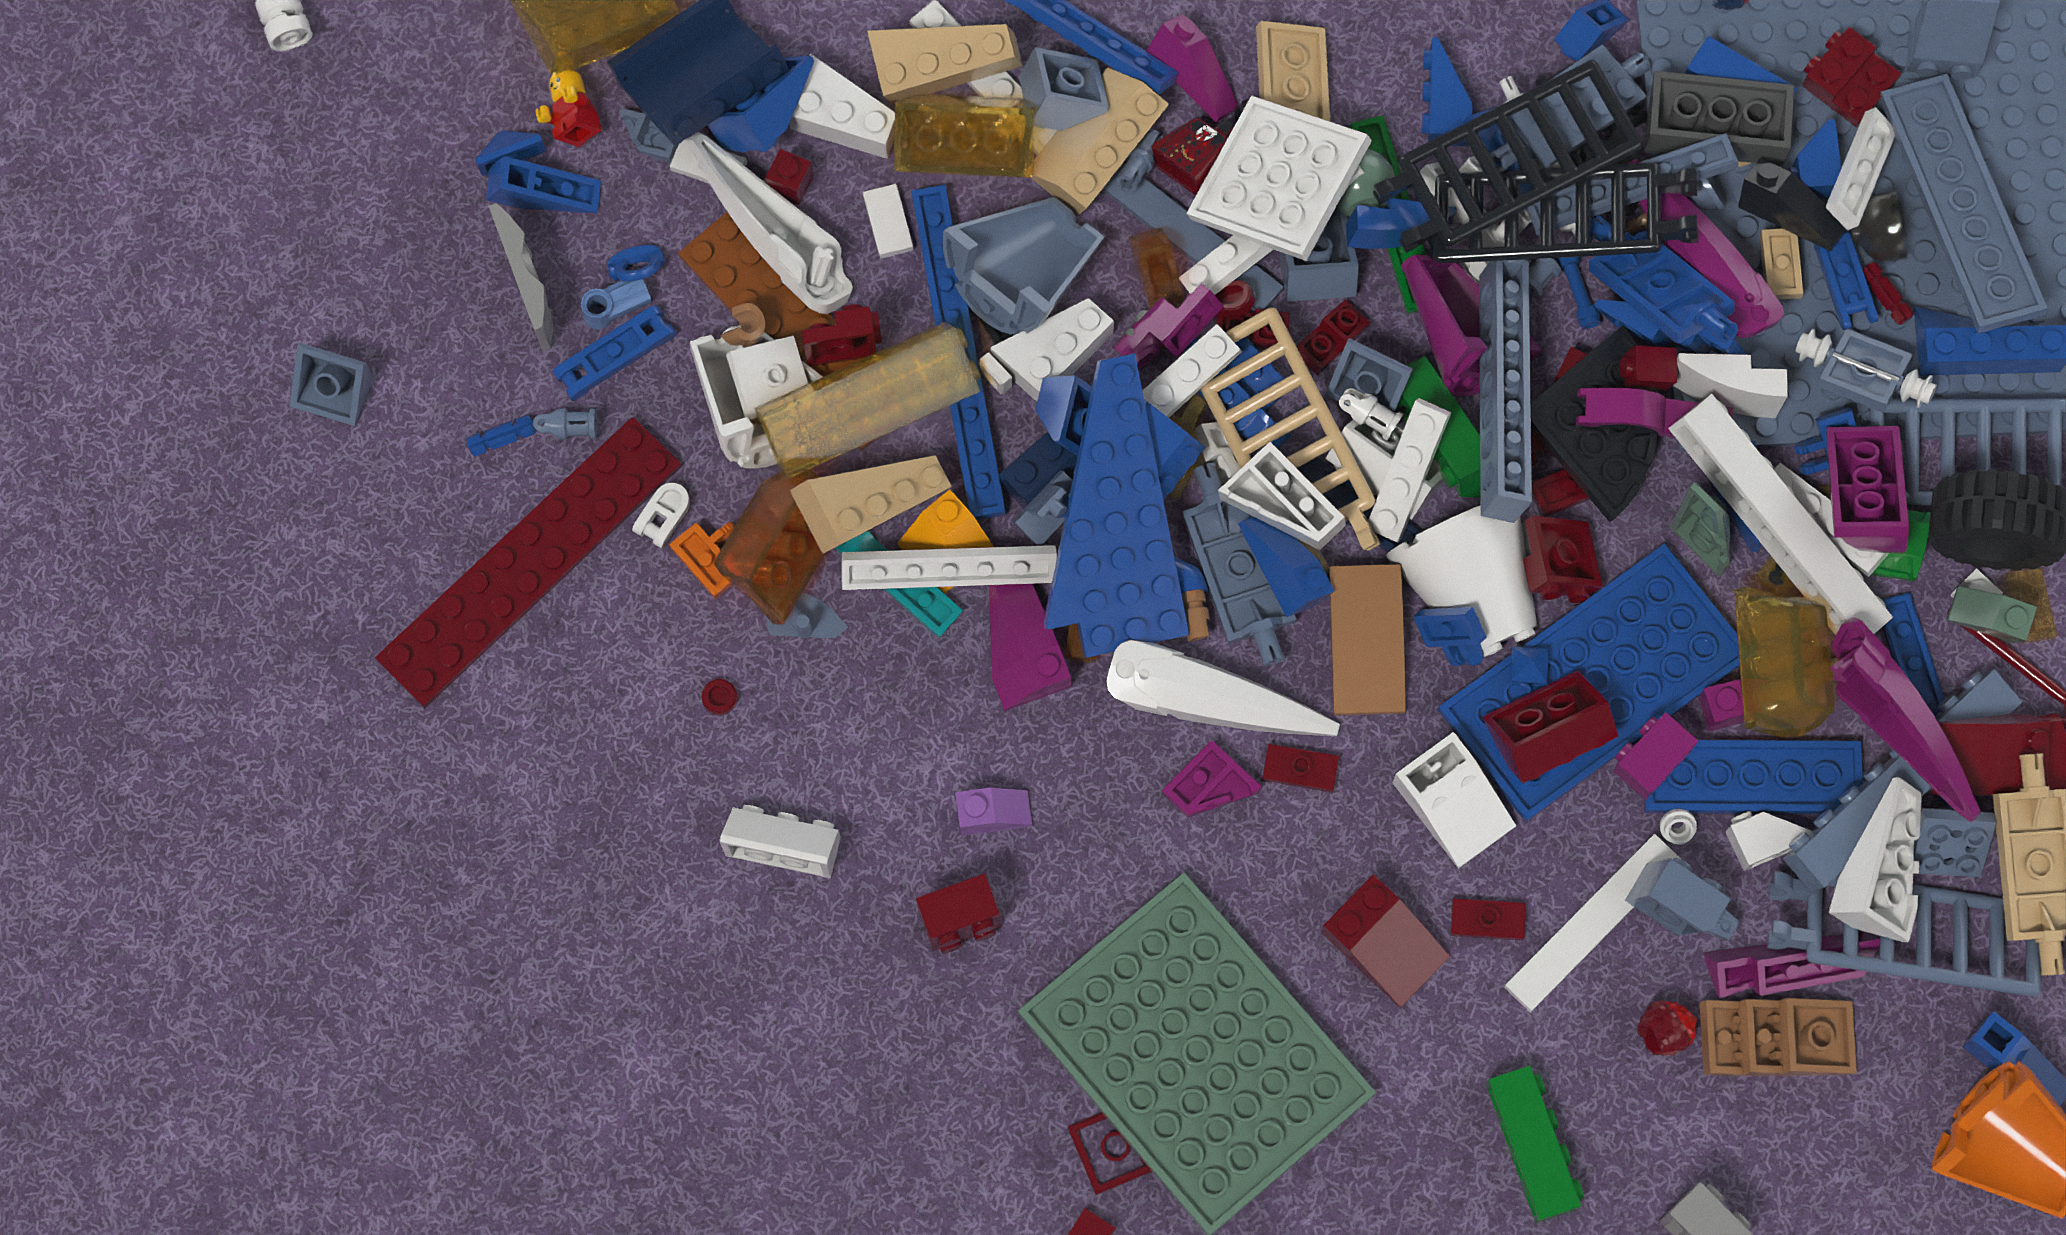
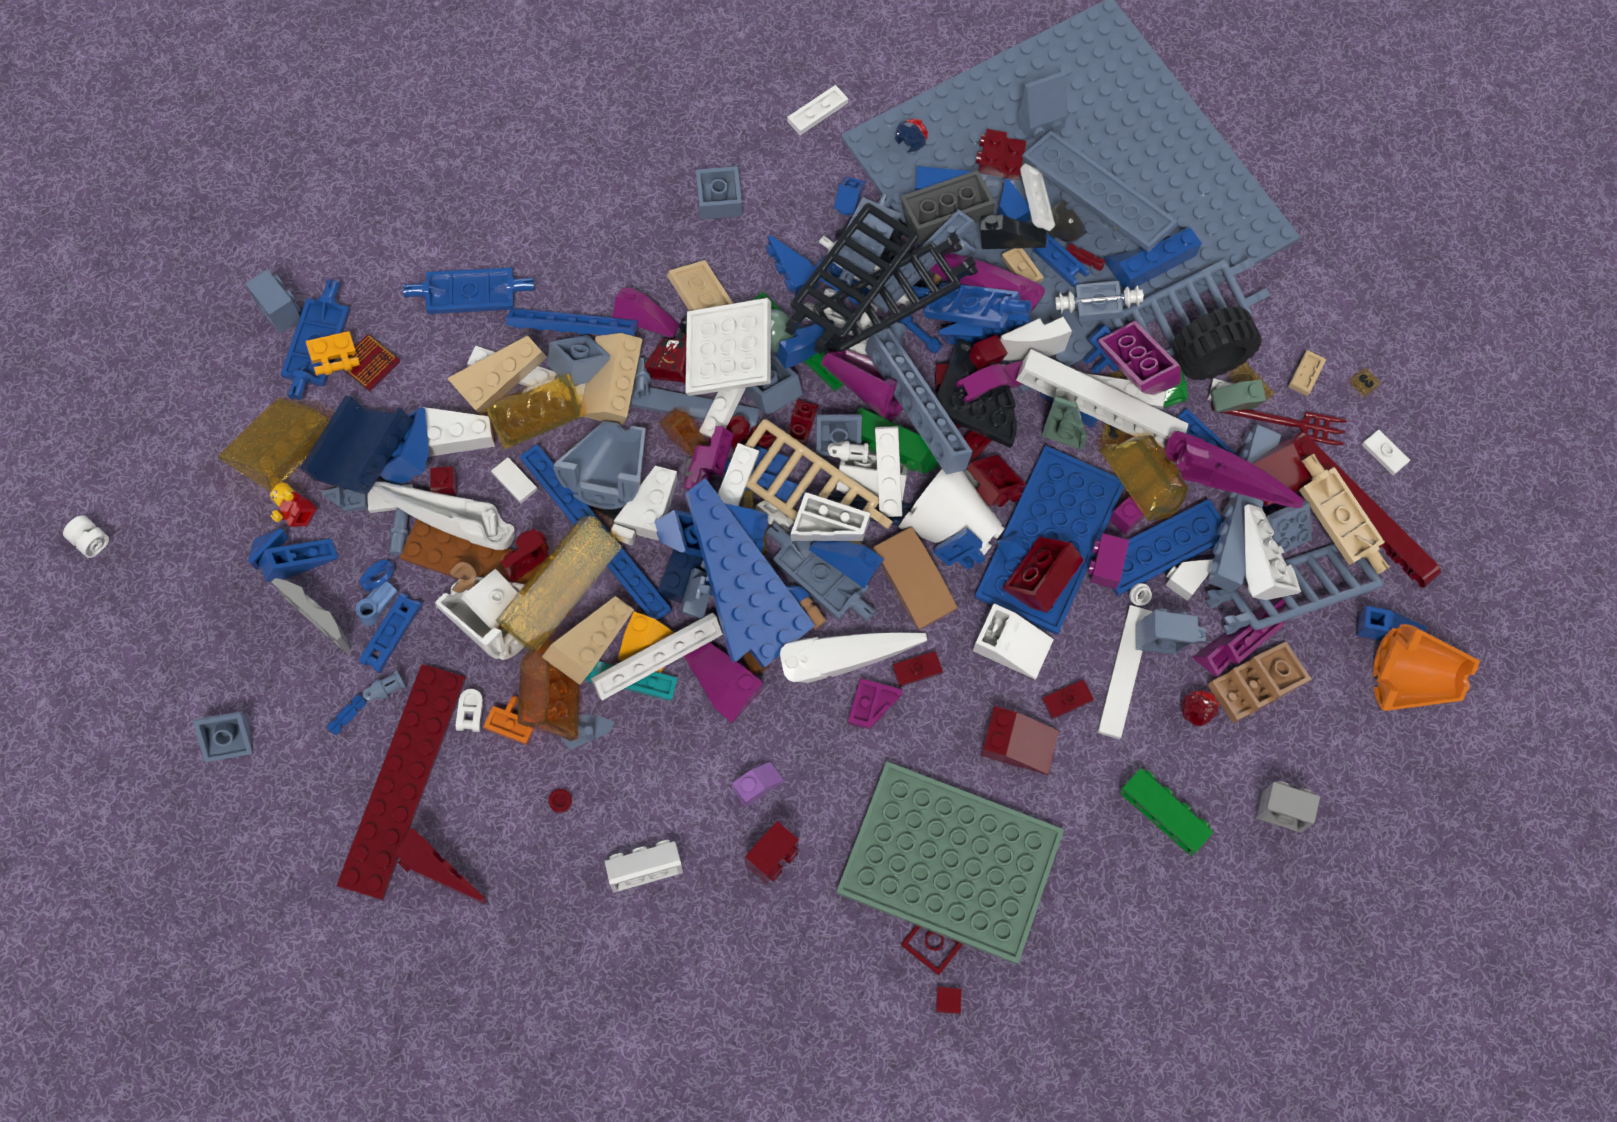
camera: 35 degrees left, 5 degrees down
(503, 685) = (426, 862): none -> dark red wedge
(694, 218) = (398, 532): none -> sand blue pin

